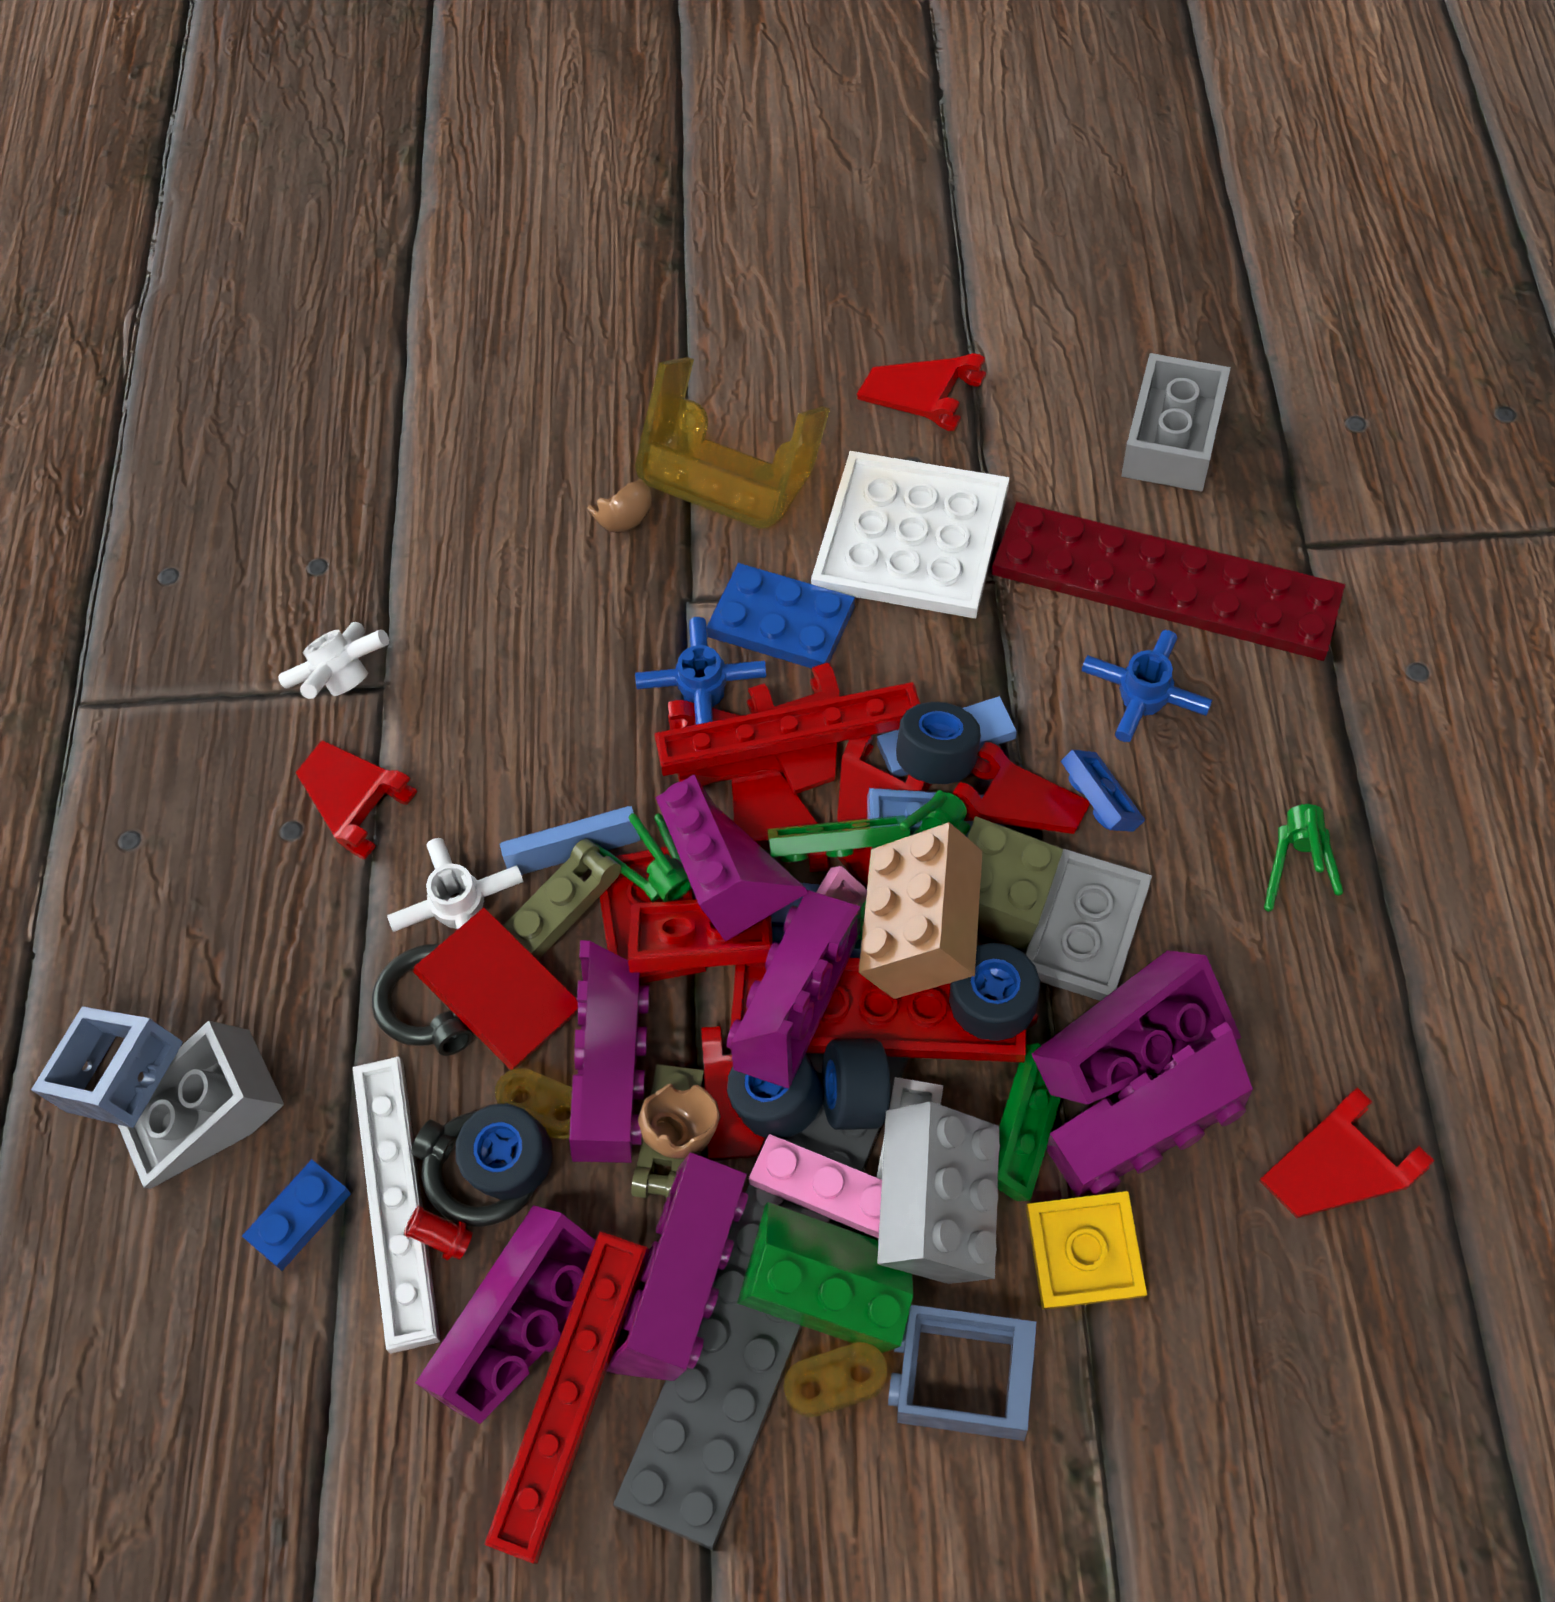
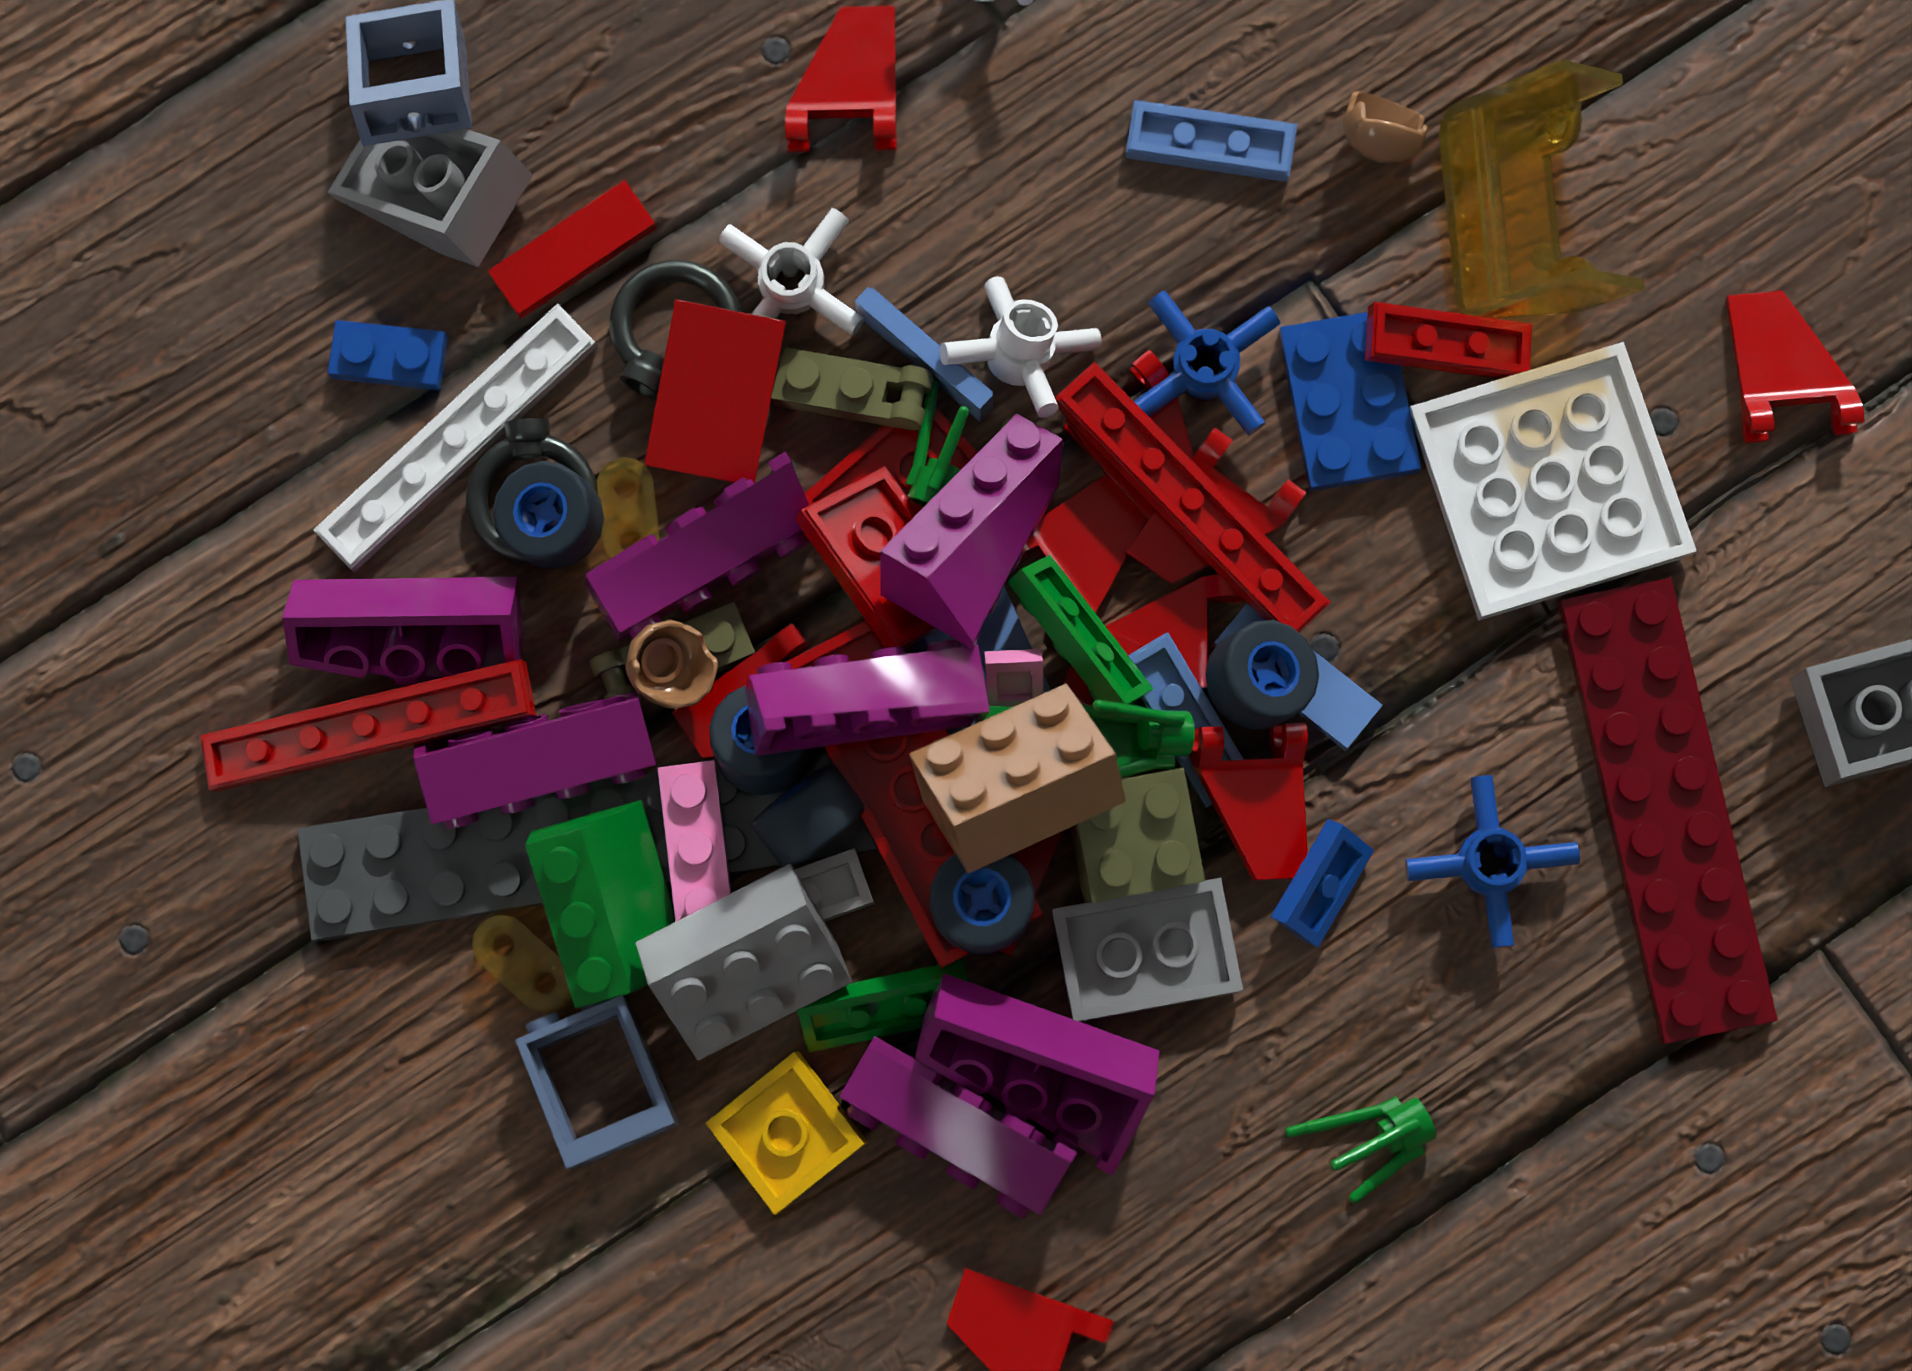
camera: 60 degrees right, 20 degrees up
(321, 1038) = (572, 249): none -> red tile
(438, 1233) = (442, 504): red pin -> none
(555, 608) = (1211, 141): none -> medium blue tile
(608, 775) = (1021, 345): none -> white bar
(781, 541) = (1447, 341): none -> red tile

